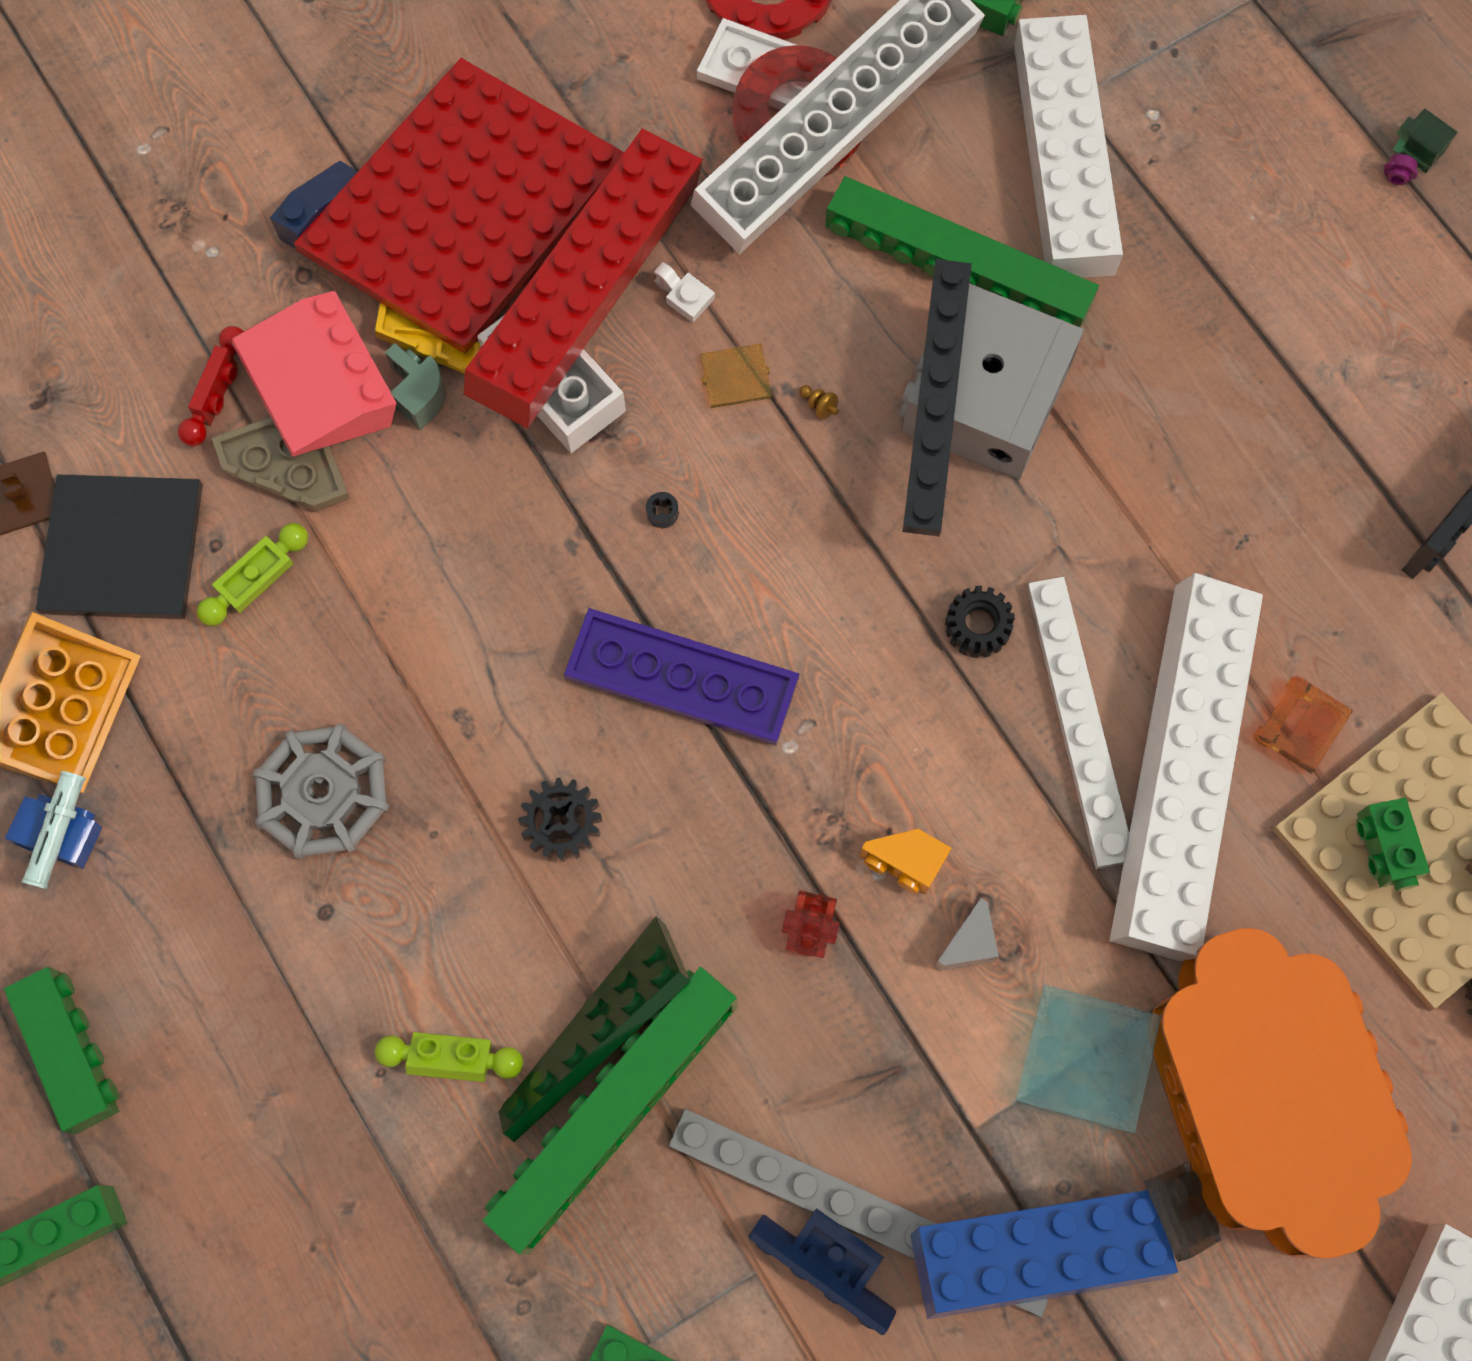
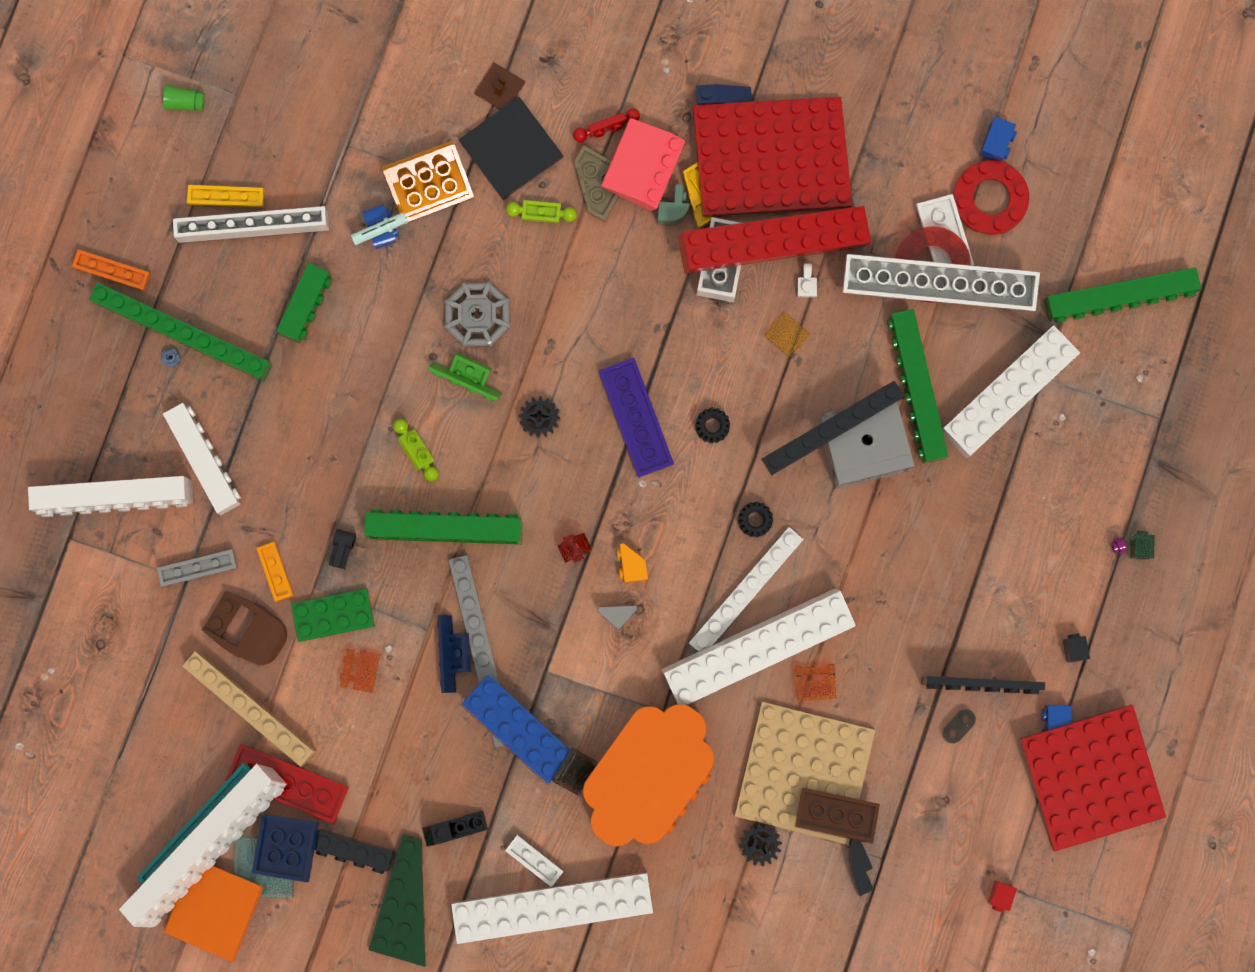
camera: 50 degrees right, 10 degrees up
(399, 875) = (468, 374): none -> bright green bracket
(501, 1305) = (343, 543): none -> black piece
(622, 1003) = (482, 499): dark green wing -> none
(661, 520) = (696, 355): black bush -> none
(791, 555) = (709, 414): none -> black tyre
(821, 402) = (802, 381): pearl gold hair -> none
(1088, 1059) = (606, 694): clear light blue plate -> none
(1392, 844) = (782, 755): green brick -> none

